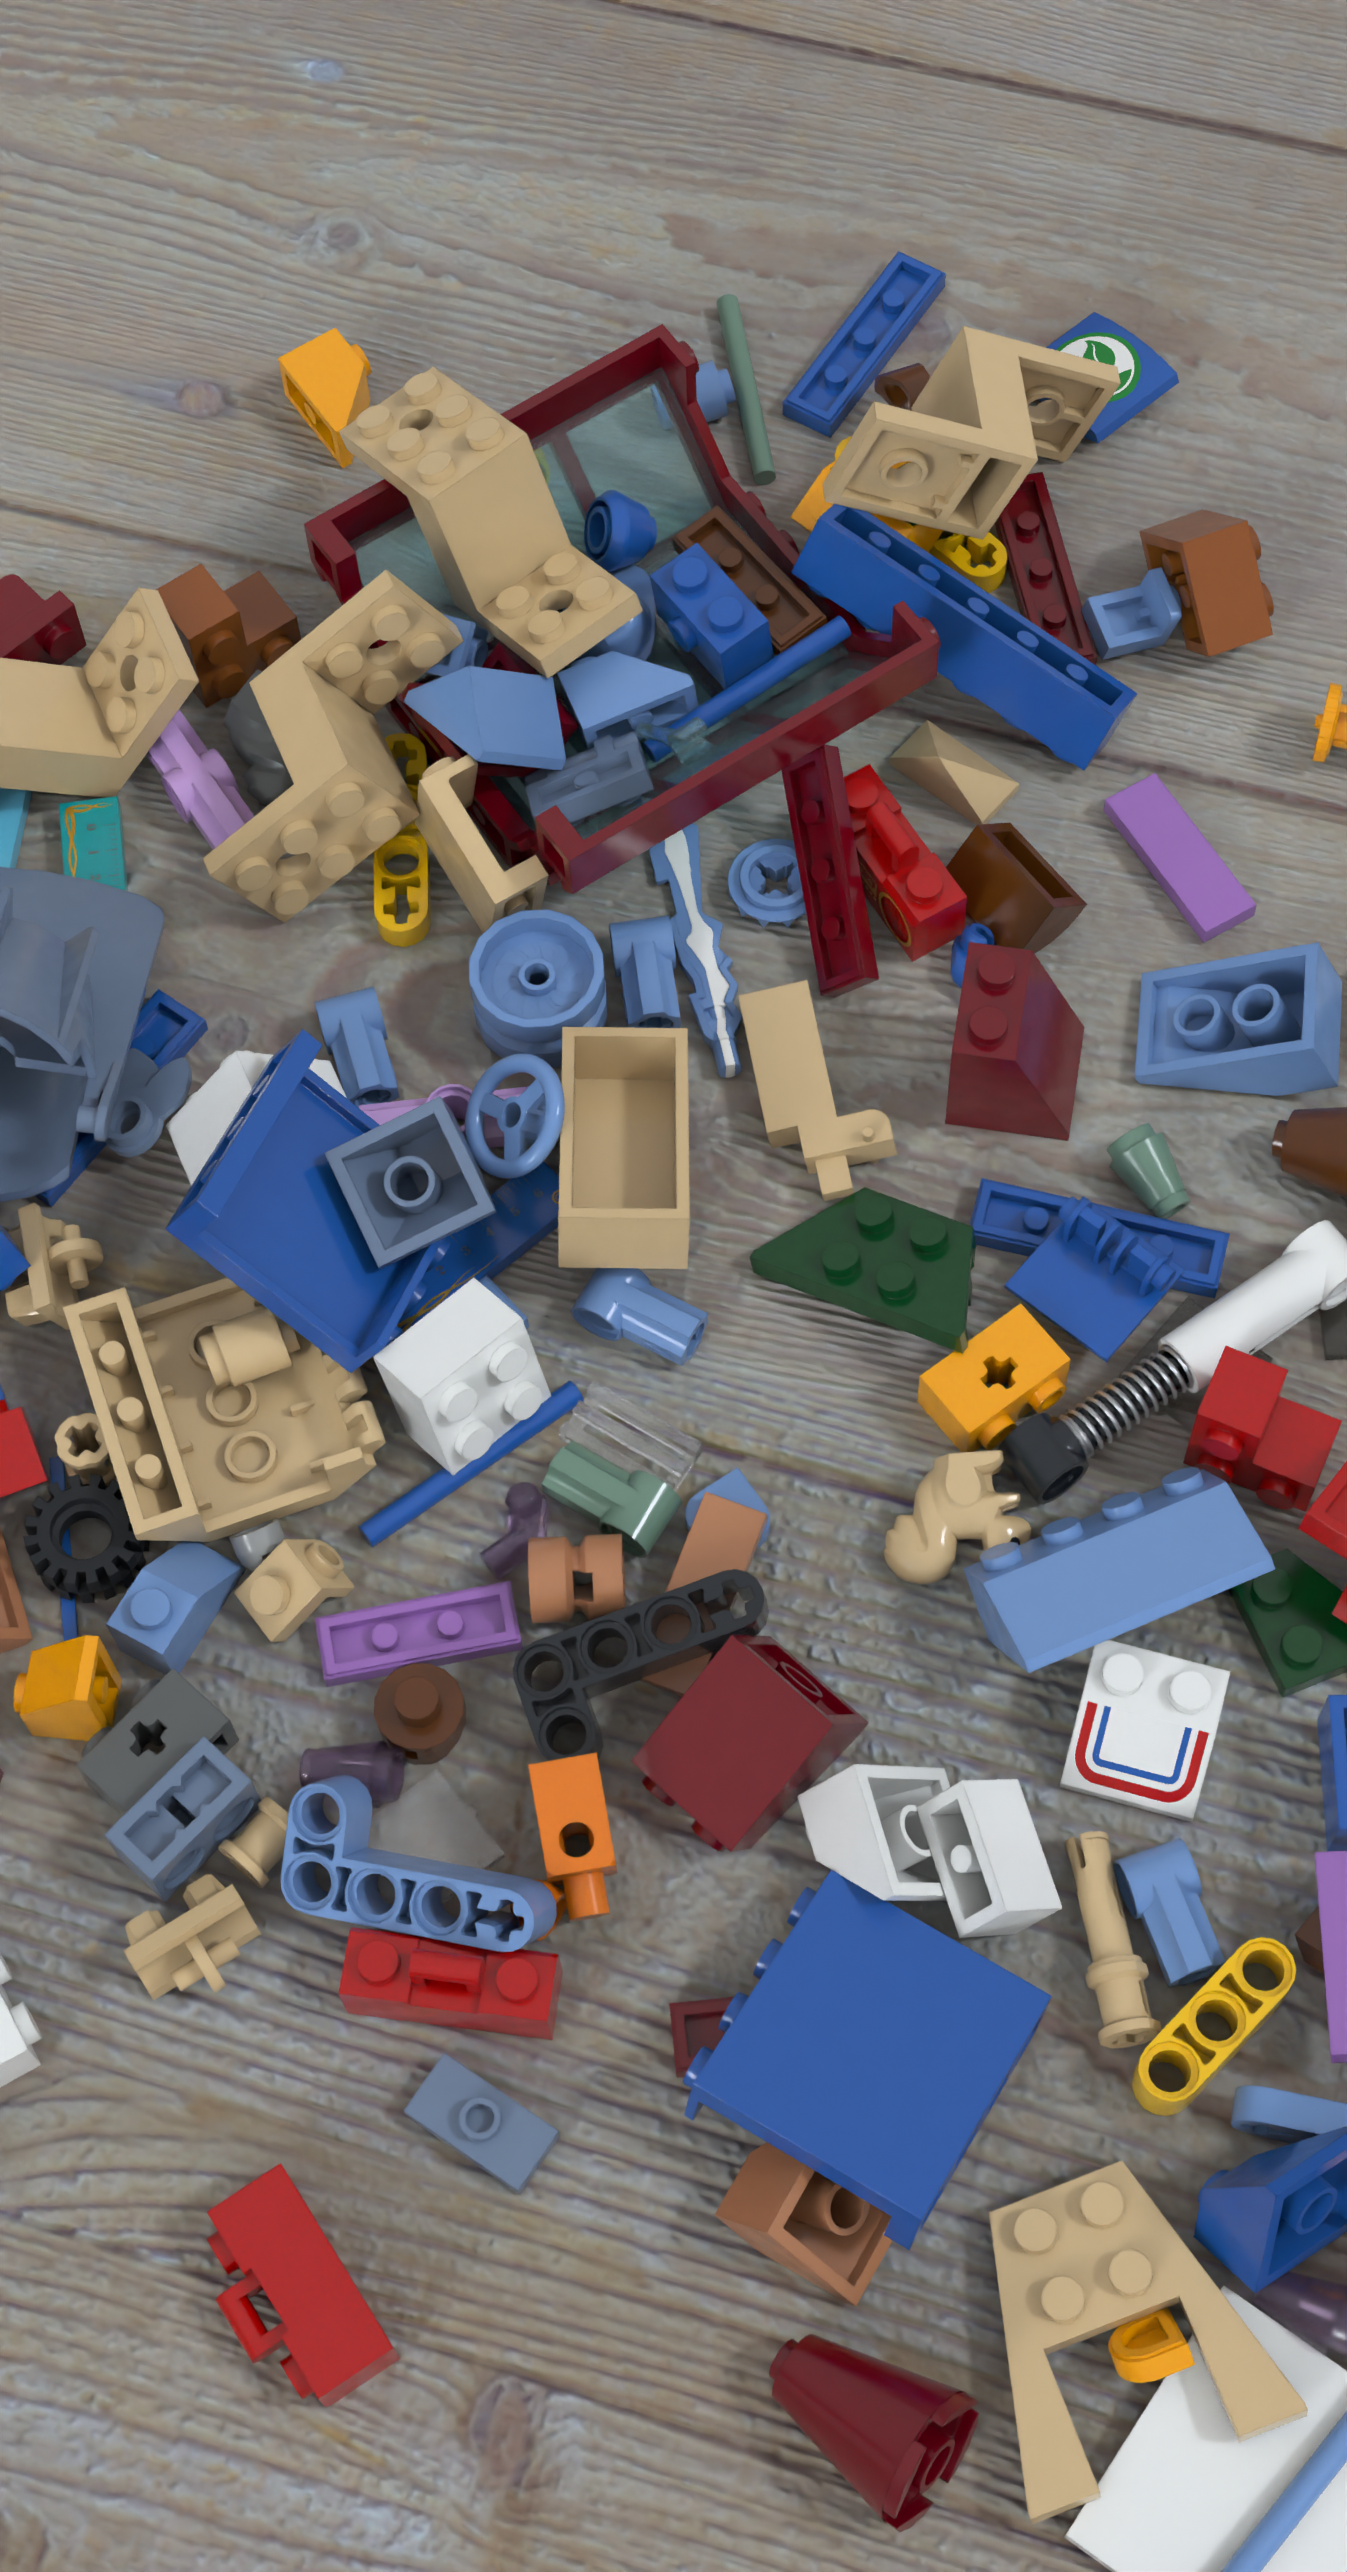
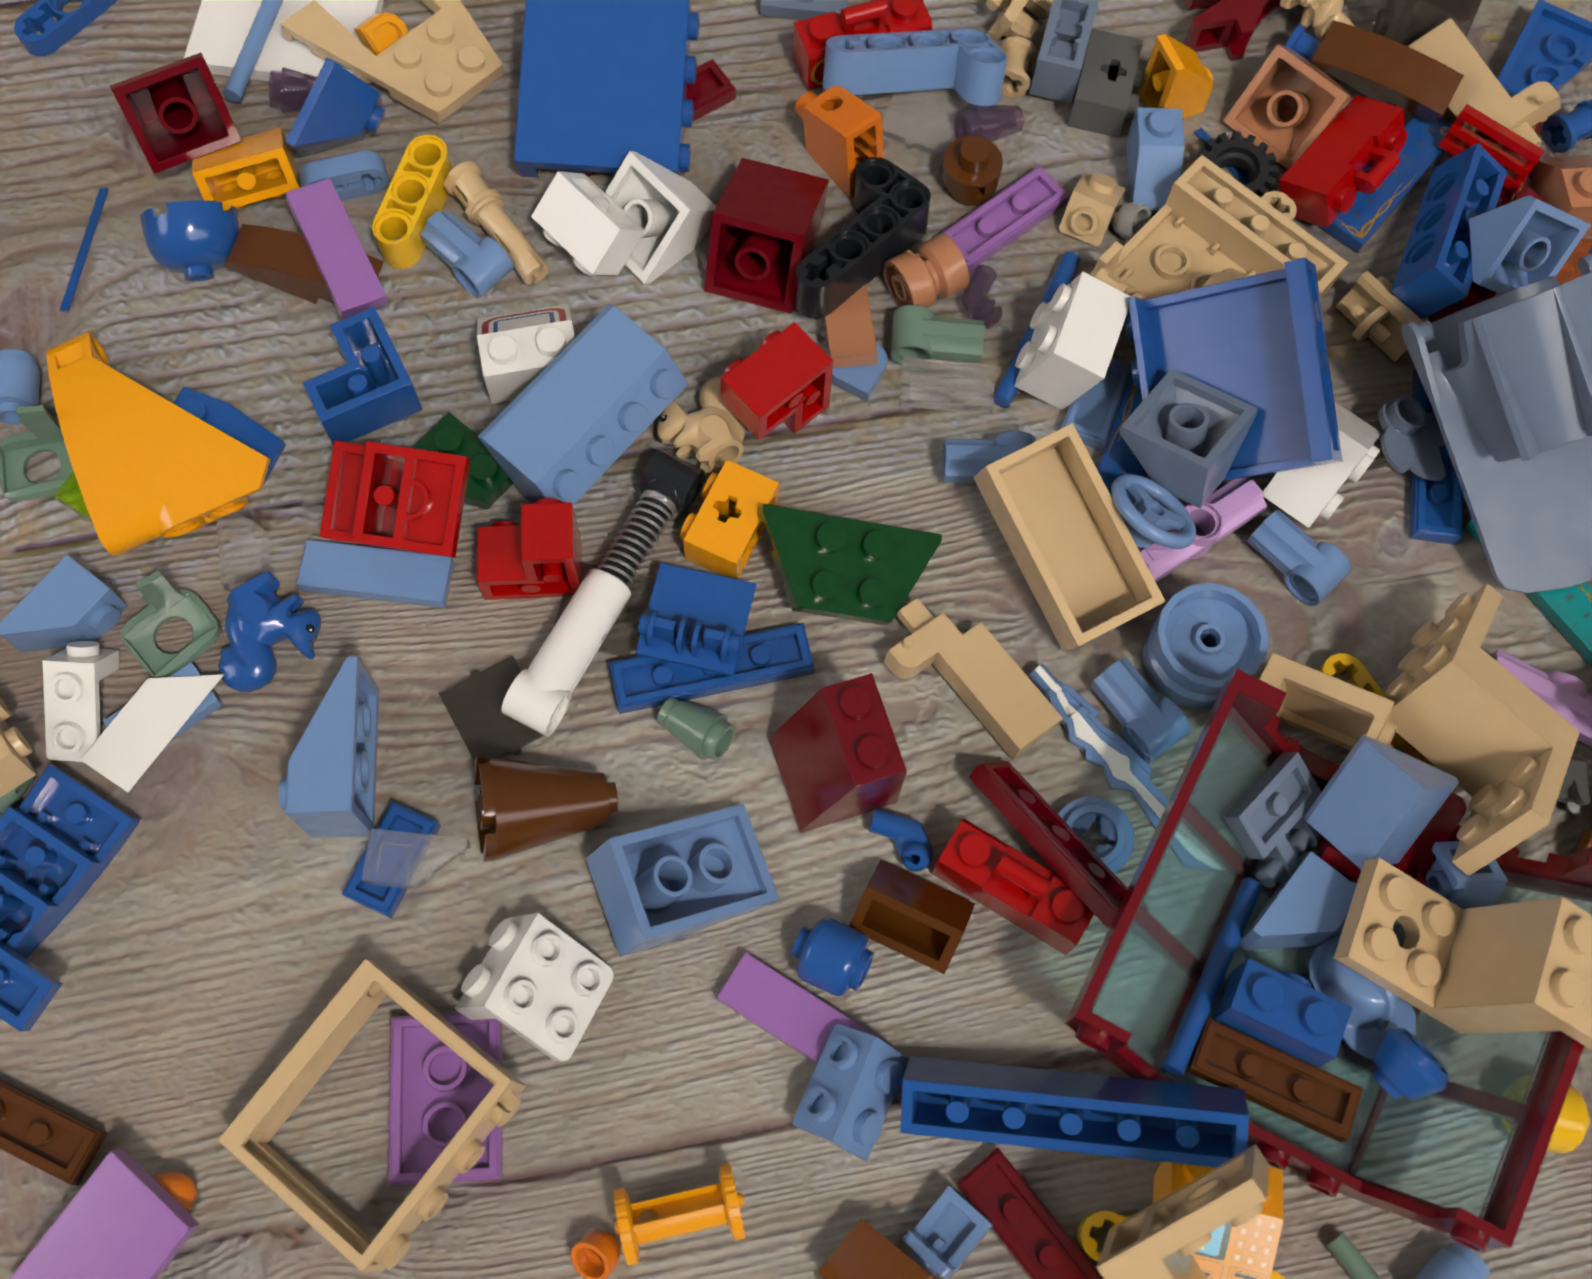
camera: 145 degrees right, 5 degrees up
(684, 742) = (1225, 882): clear light blue hand -> none
(858, 1481) = (779, 383): none -> red brick
(954, 773) = (1014, 1011): tan slope -> none
(1118, 881) = (832, 956): none -> blue head
(1164, 764) = (851, 1090): none -> medium blue bracket

